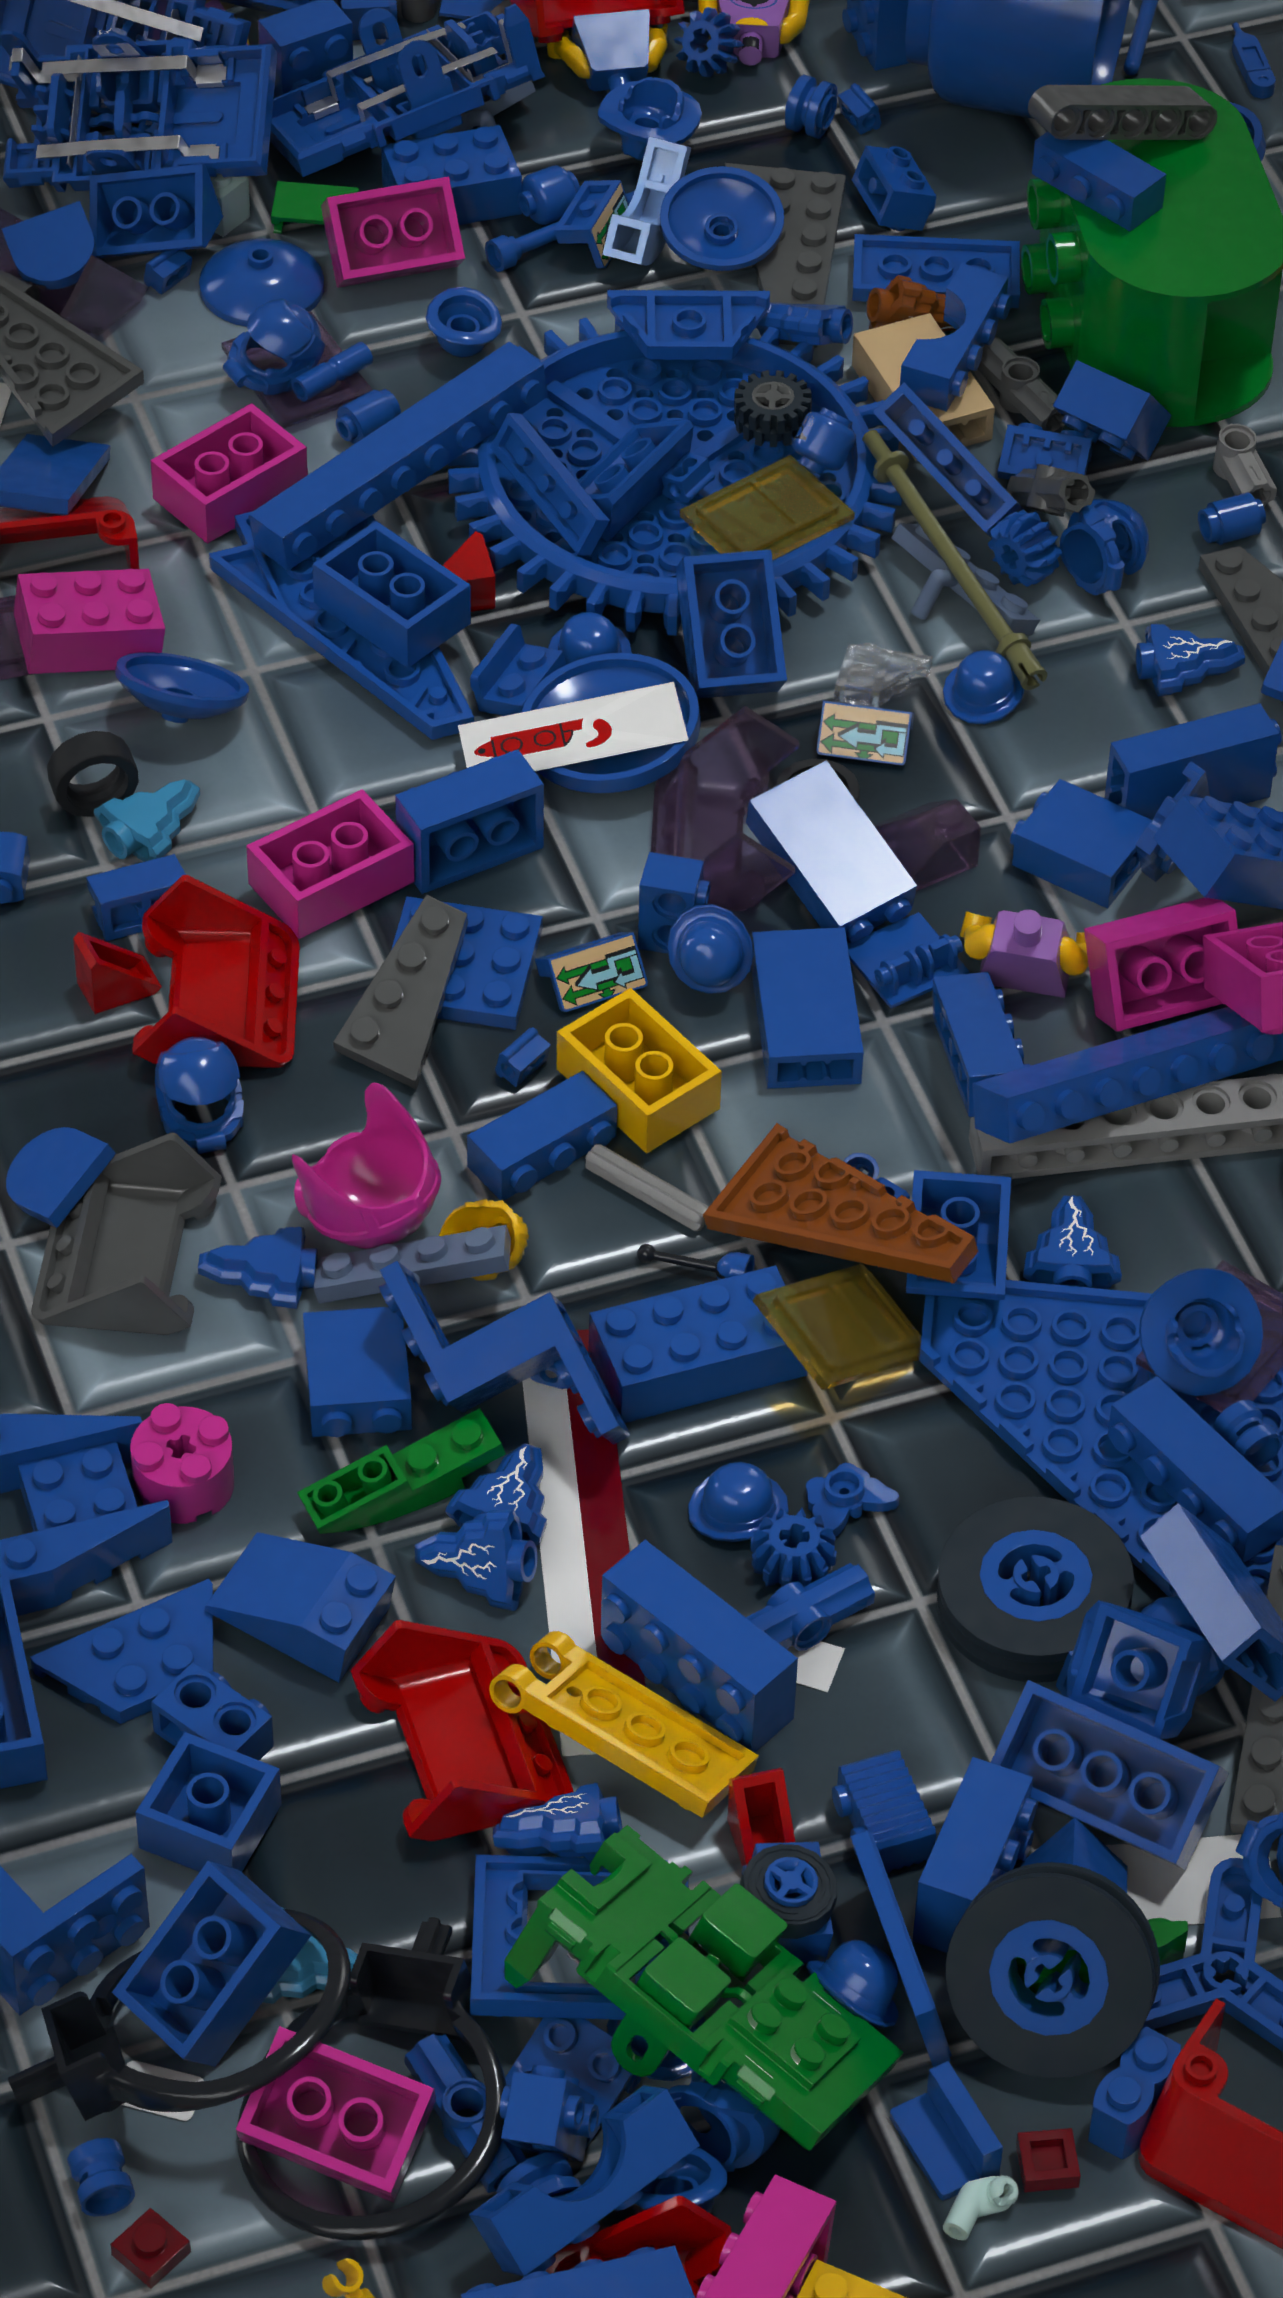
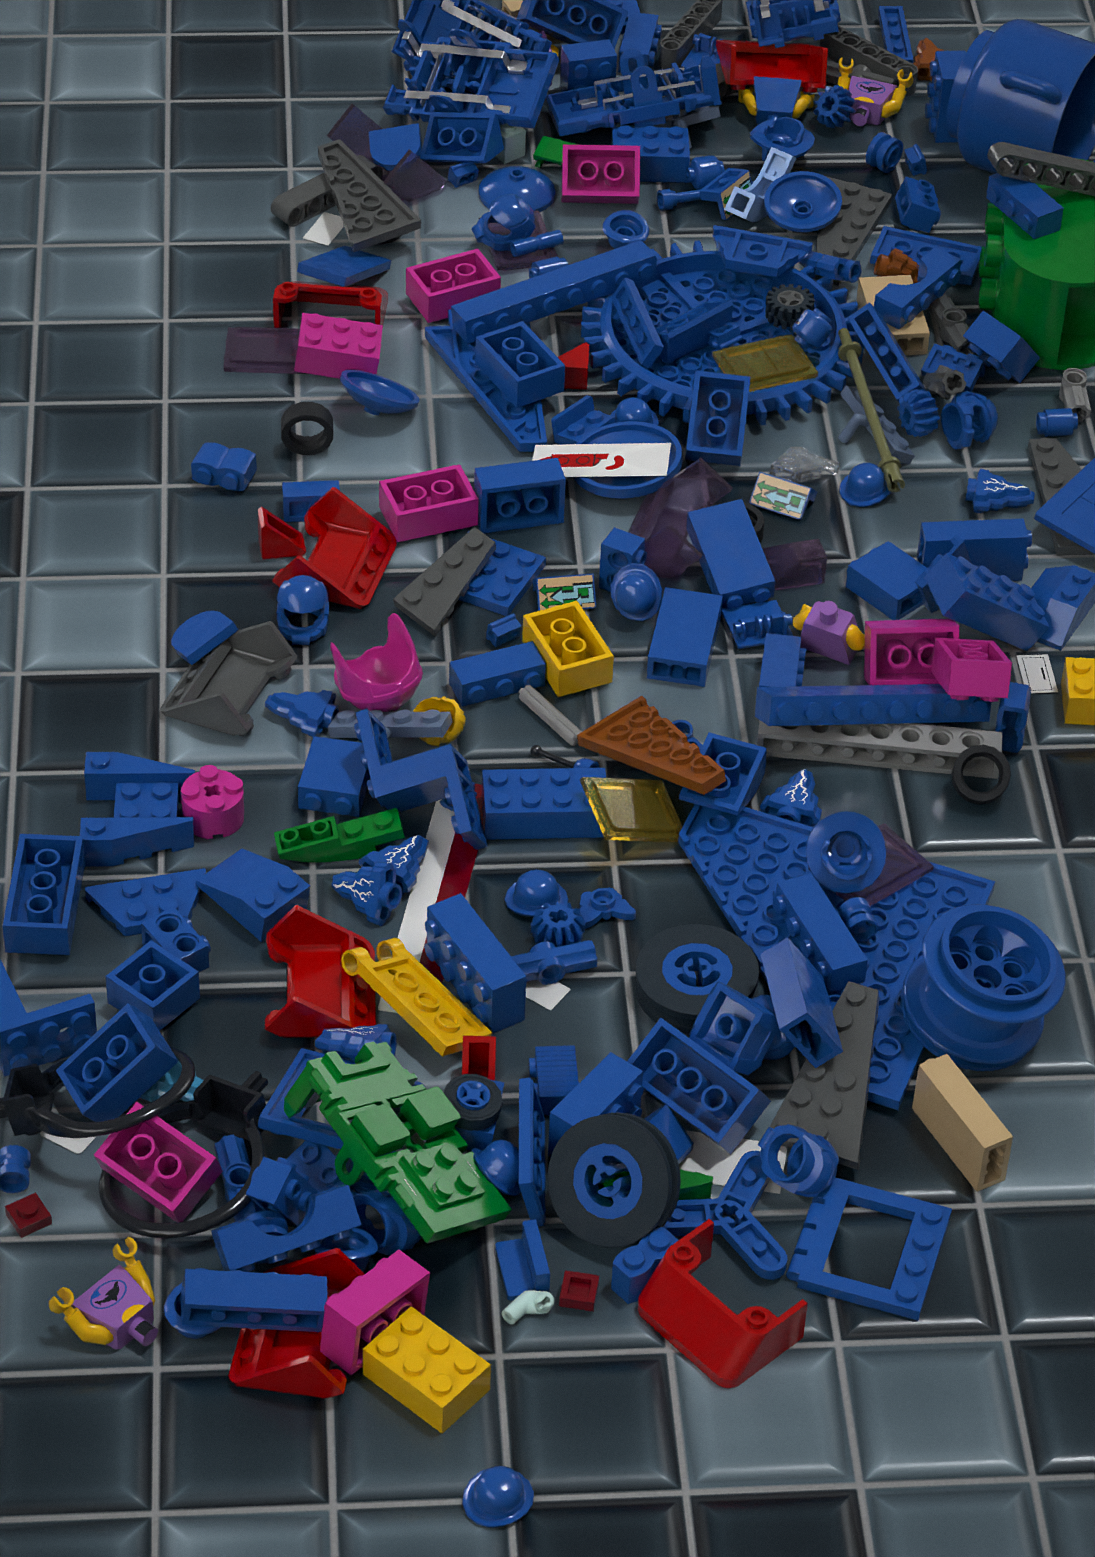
camera: 15 degrees right, 5 degrees down
(146, 820) = (331, 460): dark azure rock -> none

